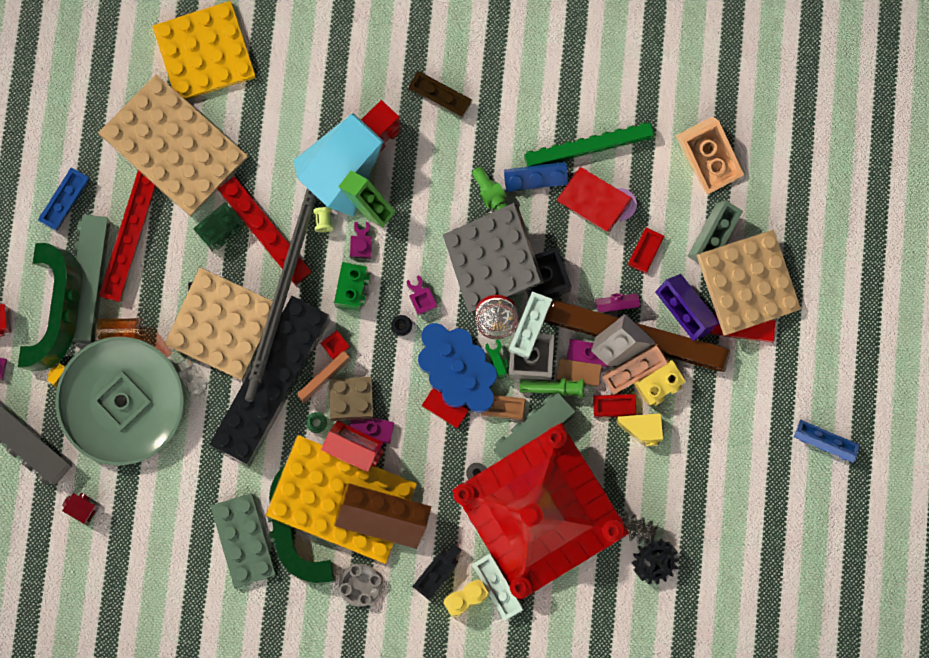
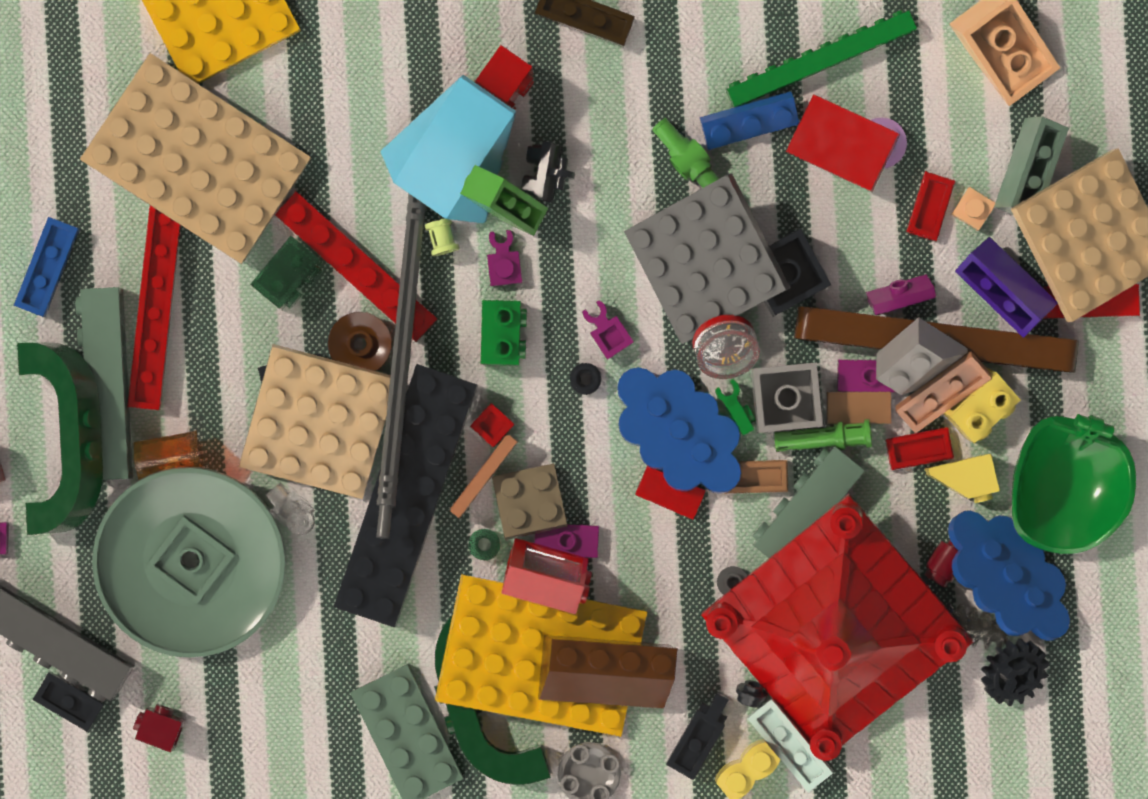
camera: 10 degrees left, 10 degrees up
(23, 481) = (68, 701): none -> black plate
(54, 374) = (86, 536): yellow plate -> none
(258, 268) = (360, 325): none -> reddish brown dish
(400, 190) = (551, 171): none -> black hips
(477, 548) = (751, 693): none -> black plate
(530, 325) = (780, 355): light aqua plate -> none
(620, 482) = (940, 564): none -> dark red brick
(660, 496) = (1008, 576): none -> blue plate
(673, 256) = (973, 209): none -> light nougat plate
(710, 441) = (1072, 484): none -> green piece

